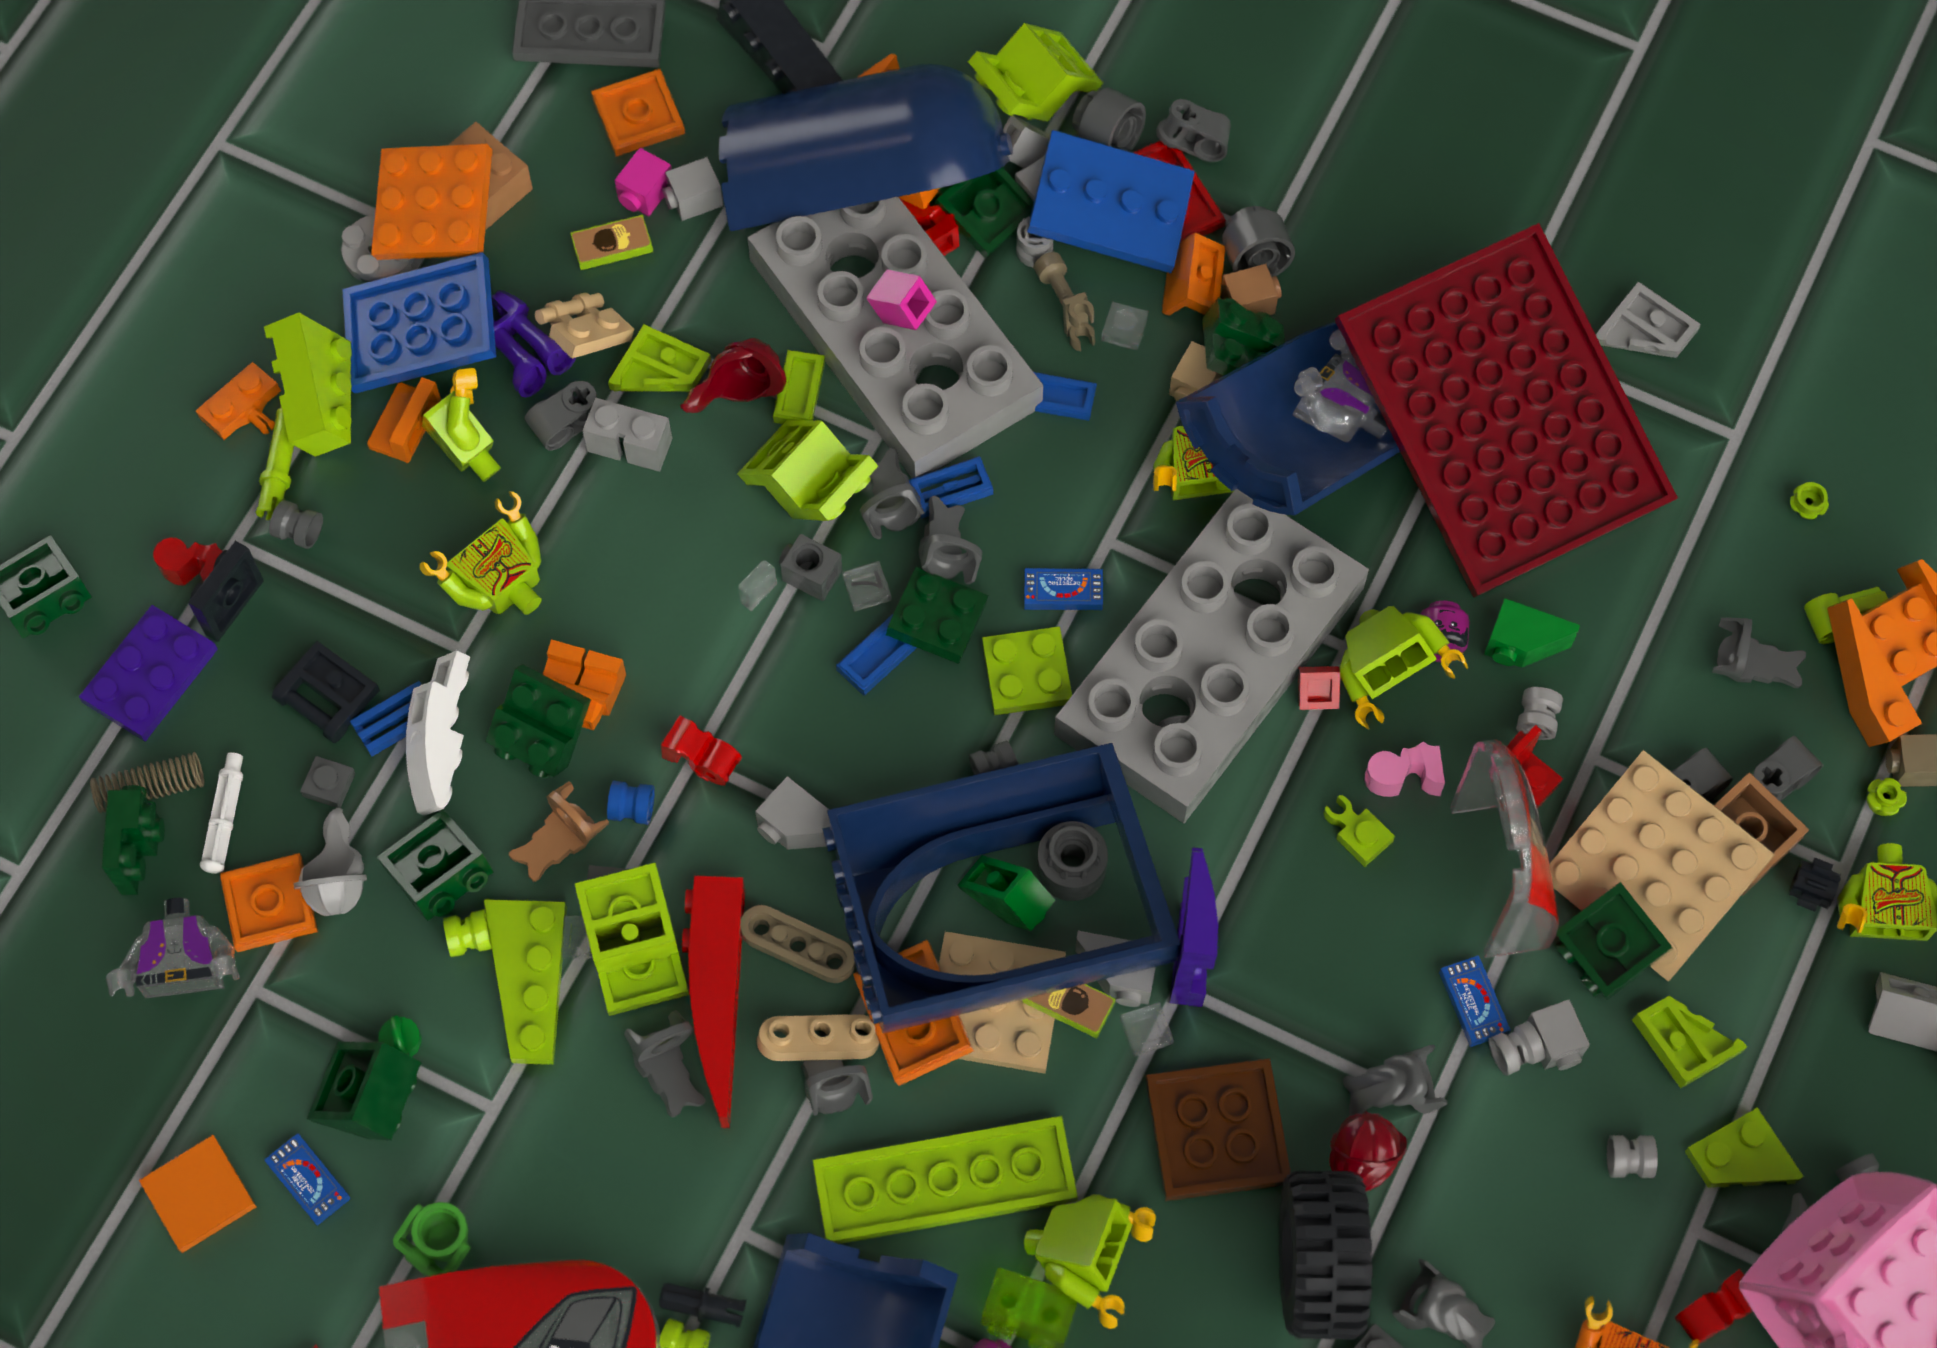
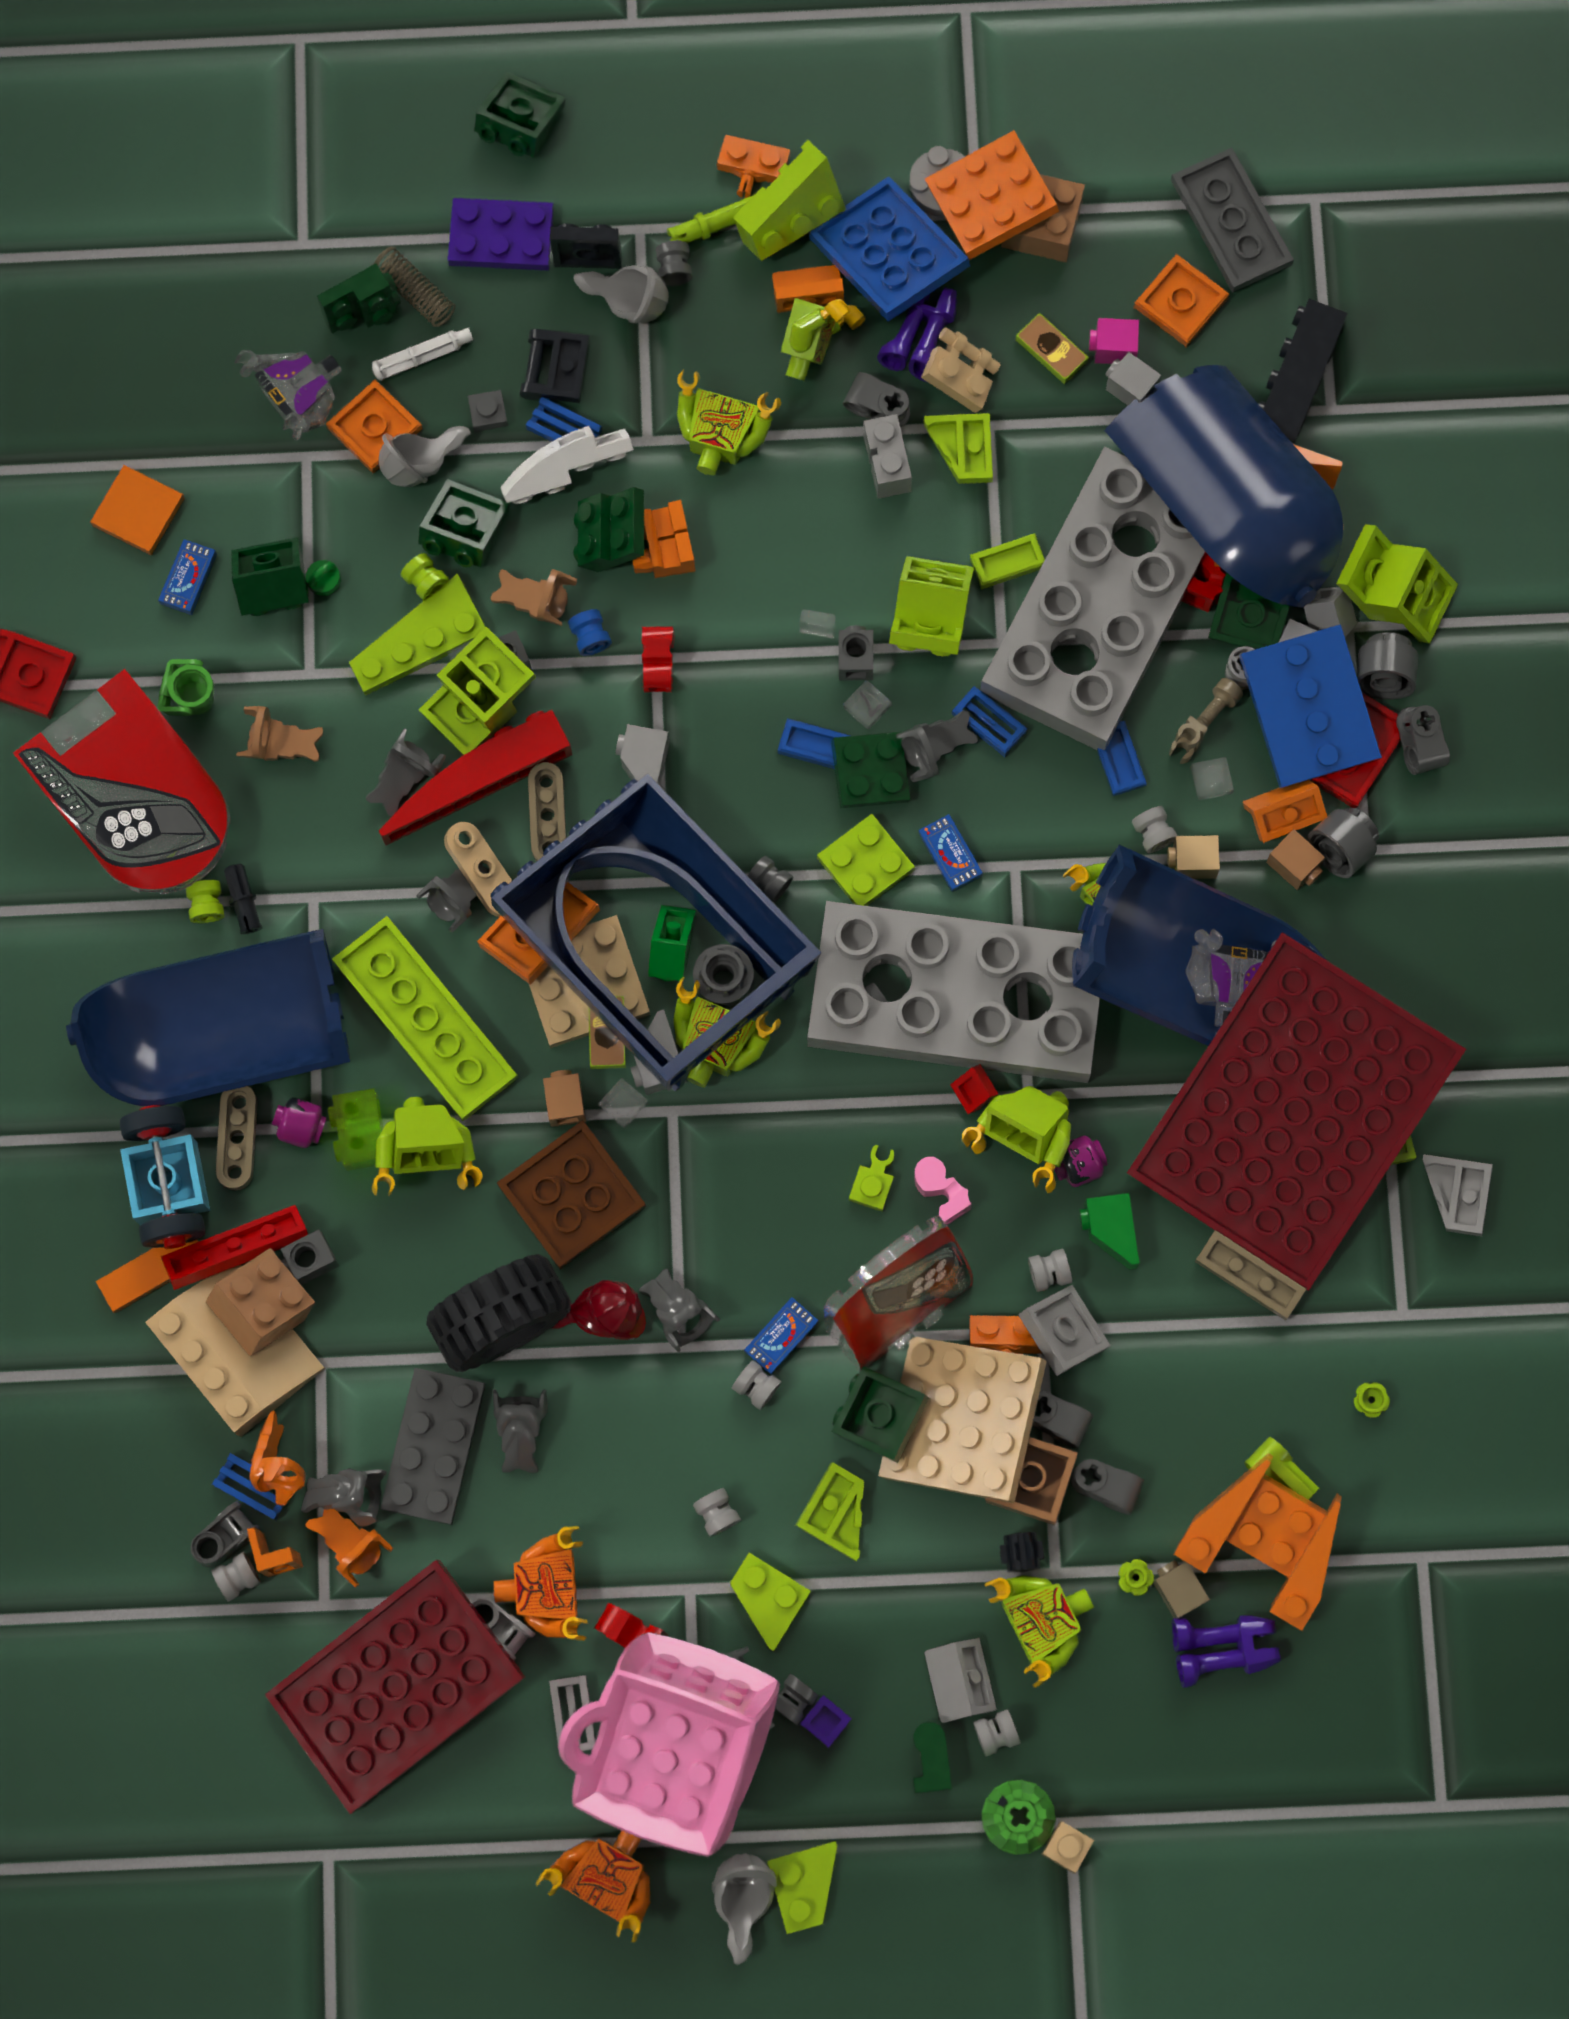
camera: 65 degrees right, 10 degrees up
(183, 564) = (598, 203): red leg -> none
(298, 578) = (631, 292): none -> light grey piece
(546, 1182) = (272, 739): none -> medium nougat hair
(739, 375) = (990, 509): dark red piece -> none
(895, 500) = (952, 687): dark grey hair -> none
(901, 299) = (1107, 591): dark pink brick -> none
(1112, 1082) = (564, 1098): none -> medium nougat brick
(1113, 902) = (735, 1054): none -> lime torso
(1149, 396) = (1154, 829): none -> light grey wheel
(1196, 933) = (700, 1089): dark purple wedge -> none
(1237, 335) = (1241, 870): dark green plate -> none
(1540, 776) = (994, 1284): red bracket -> none
(1560, 1035) = (783, 1411): light grey brick -> none
(1583, 786) = (1001, 1334): none -> orange plate
(1610, 728) = (1064, 1330): none -> light grey plate
(1635, 541) = (1250, 1275): none -> dark tan plate
(1747, 660) = (1194, 1412): dark grey hair -> none
(1902, 1157) = (826, 1721): none -> dark purple plate

